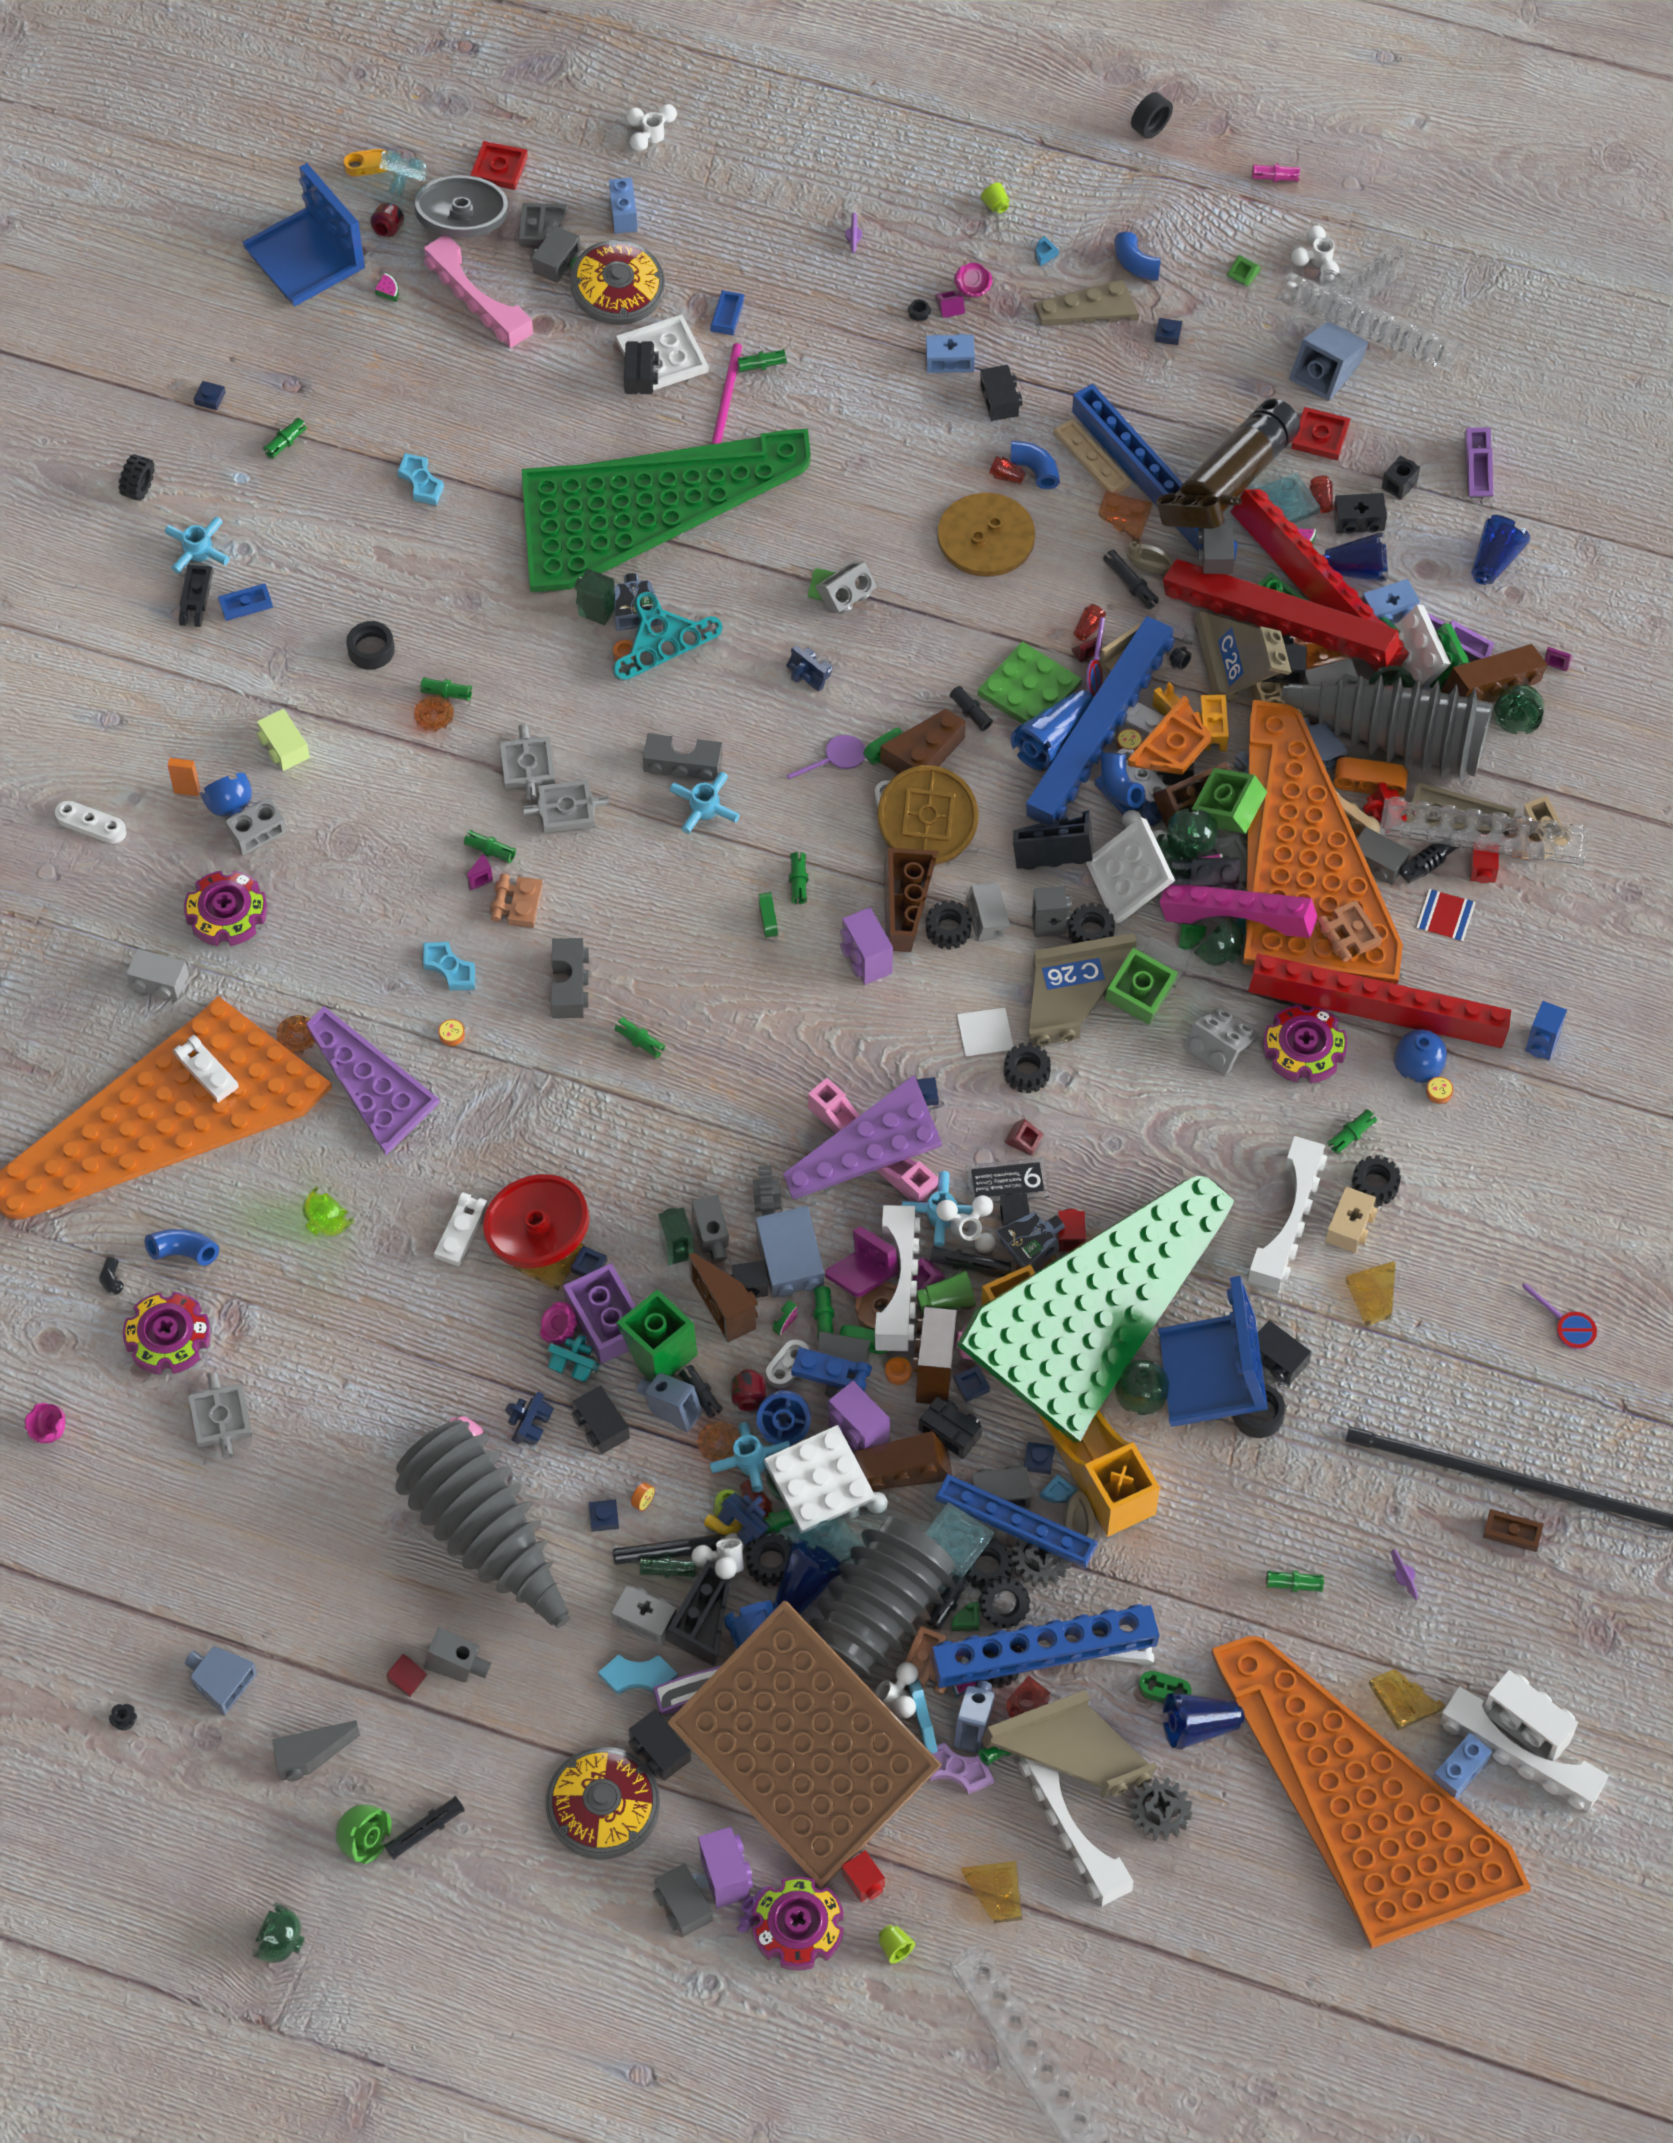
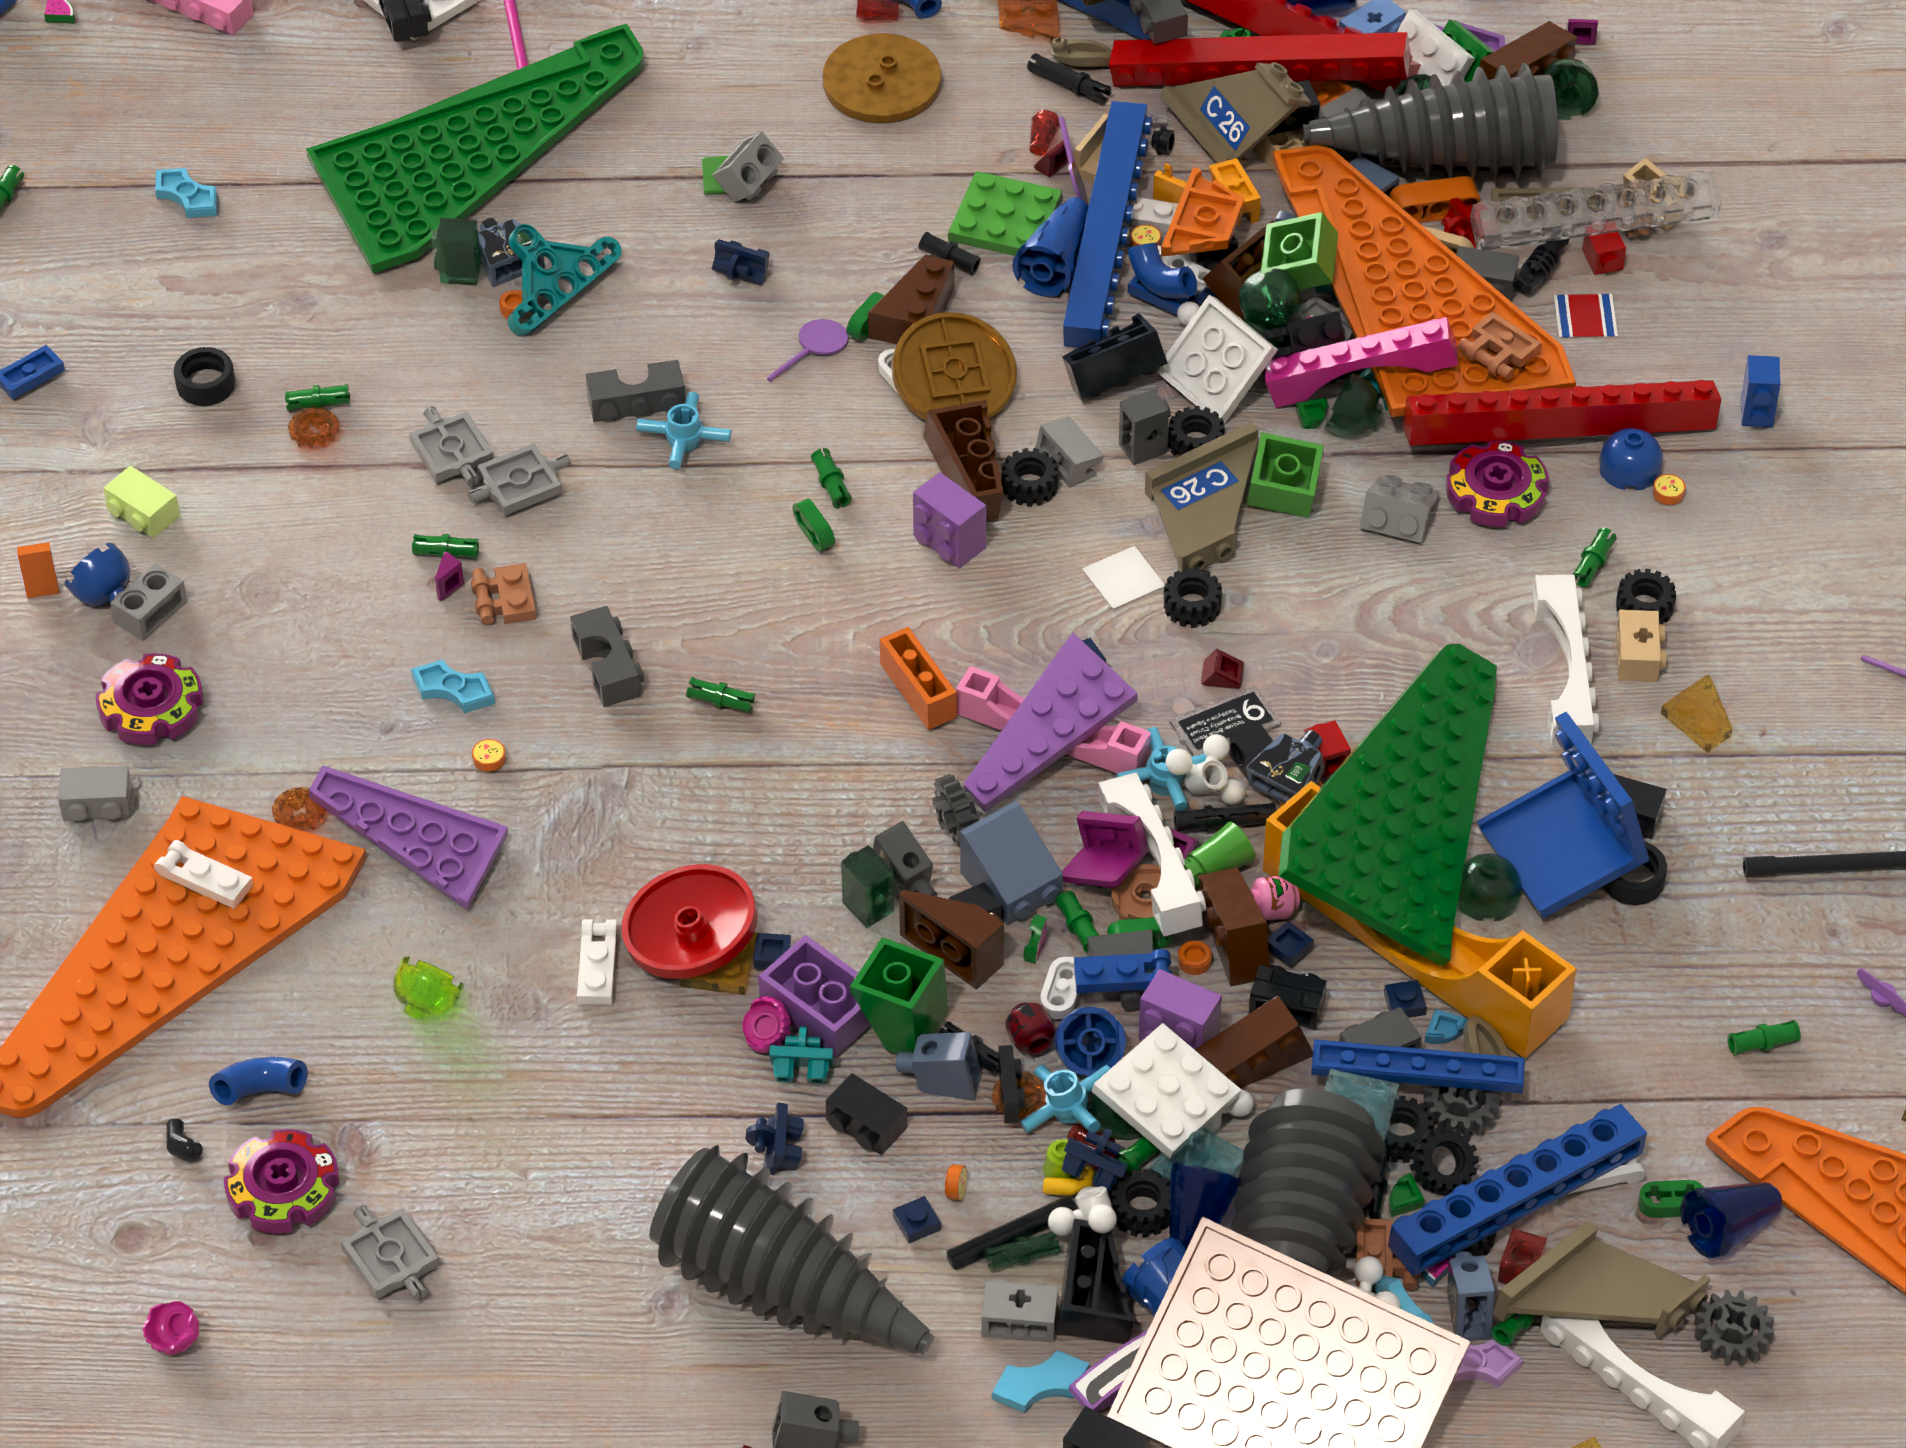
camera: 20 degrees left, 10 degrees down
(708, 1443) = (1012, 1096): none -> black plate
(788, 1072) = (918, 678): none -> orange brick

